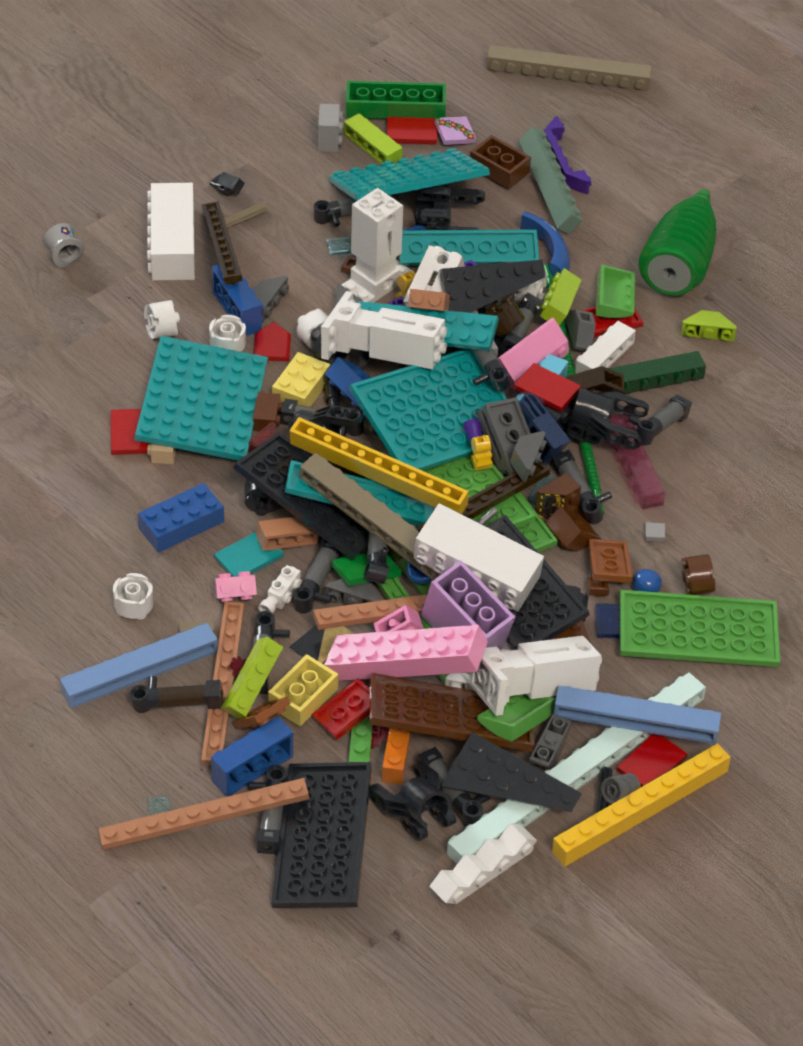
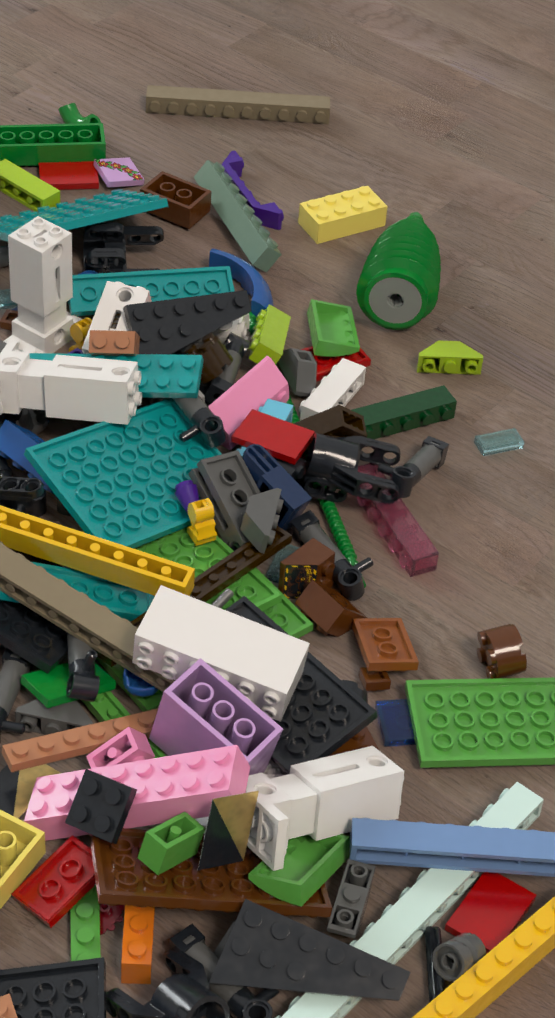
camera: 10 degrees left, 5 degrees down
(379, 659) = (101, 806): none -> black plate
(422, 75) = (71, 115): none -> green cylinder
(425, 689) = (171, 843): none -> bright green brick
(466, 684) = (228, 830): none -> sticker
(642, 184) = (342, 214): none -> light yellow brick
(647, 581) = (435, 666): blue hair -> none
(655, 532) = (433, 603): light grey tile -> none
(736, 402) = (499, 442): none -> clear light blue tile

